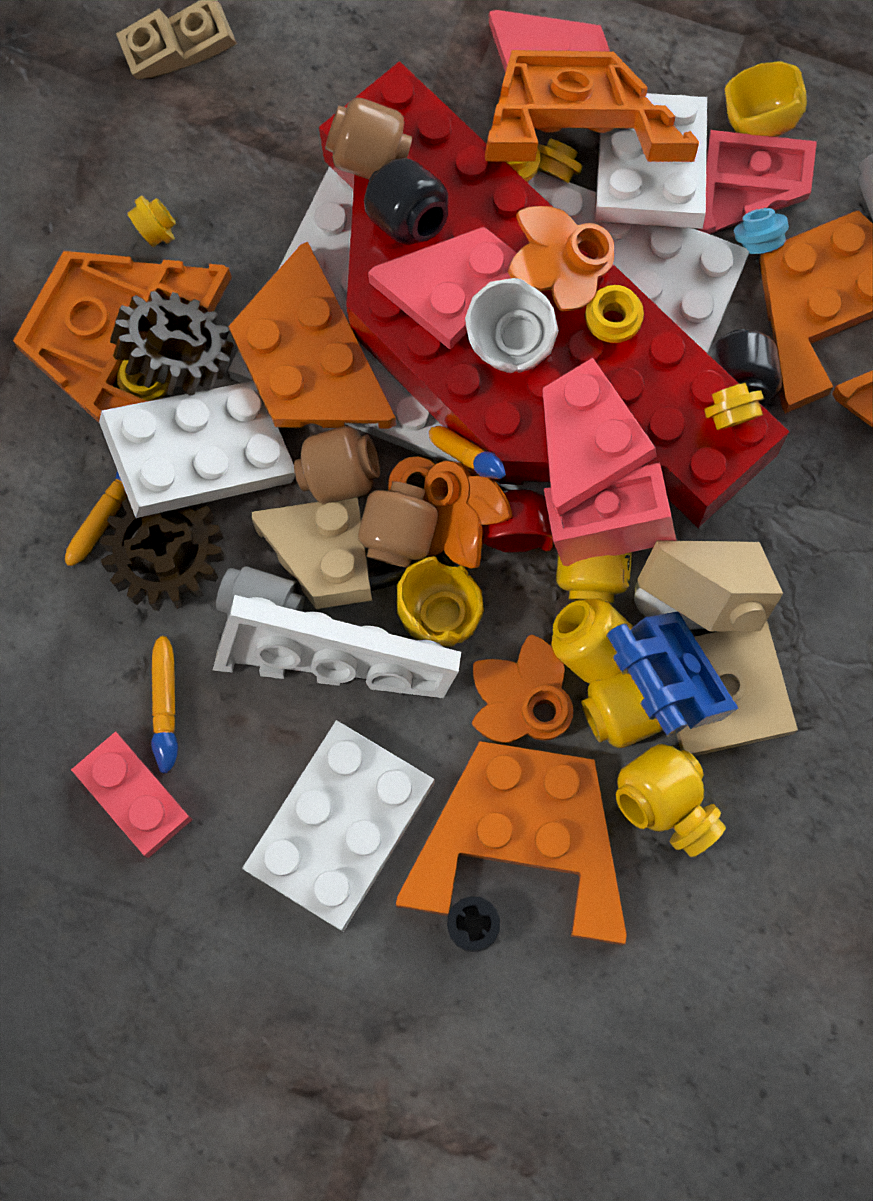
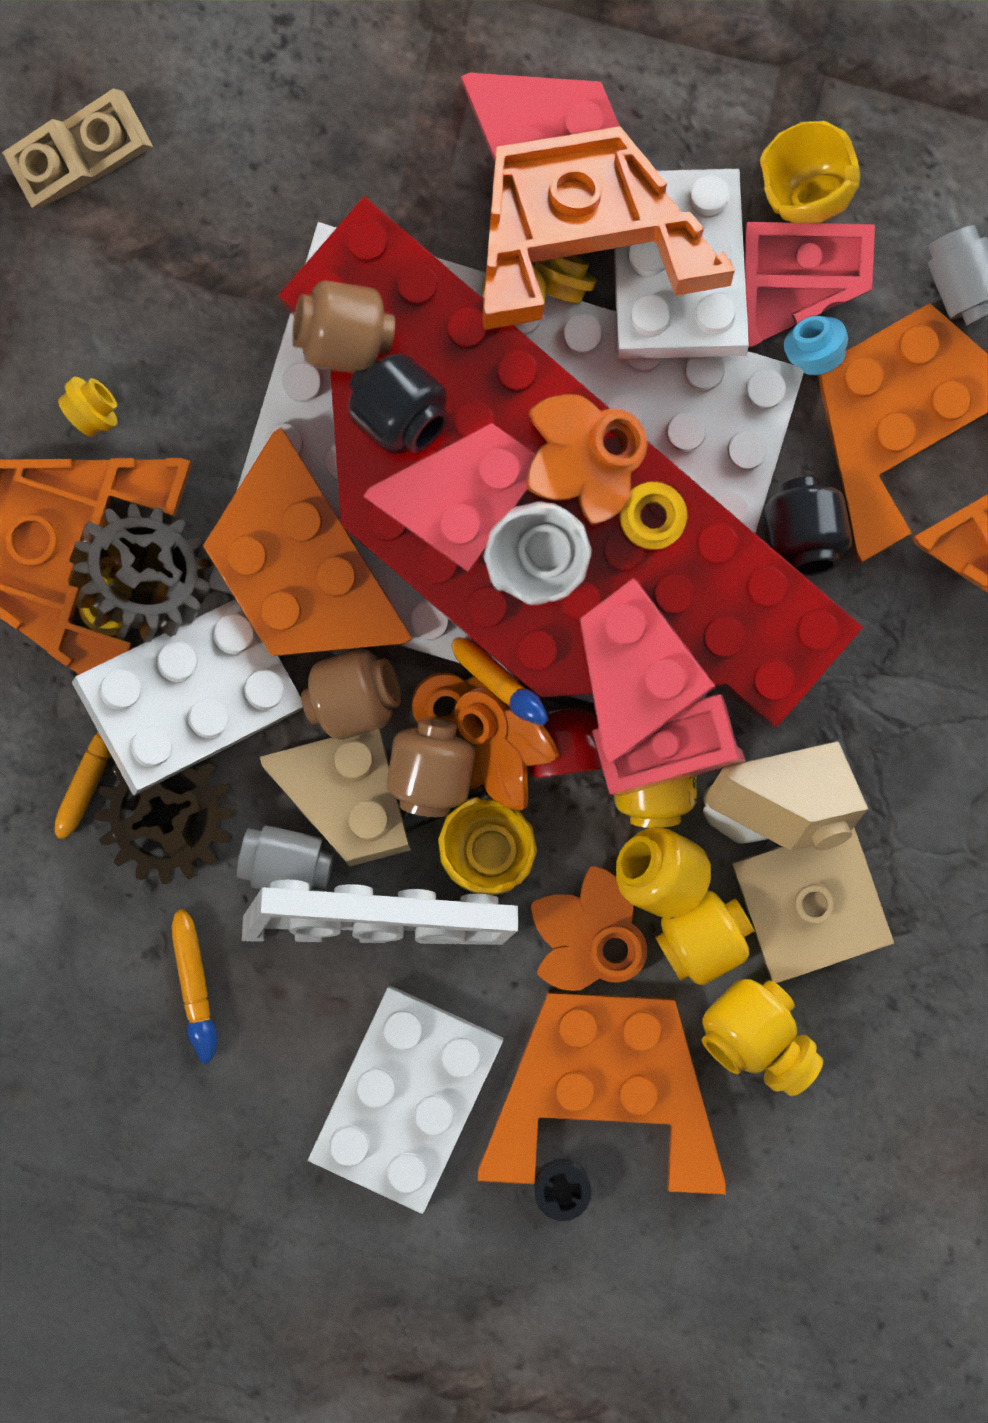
camera: 10 degrees left, 15 degrees up
(131, 795) = (174, 1090): coral plate -> none
(671, 673) = (762, 899): blue plate -> none
(734, 406) = (799, 620): yellow plate -> none

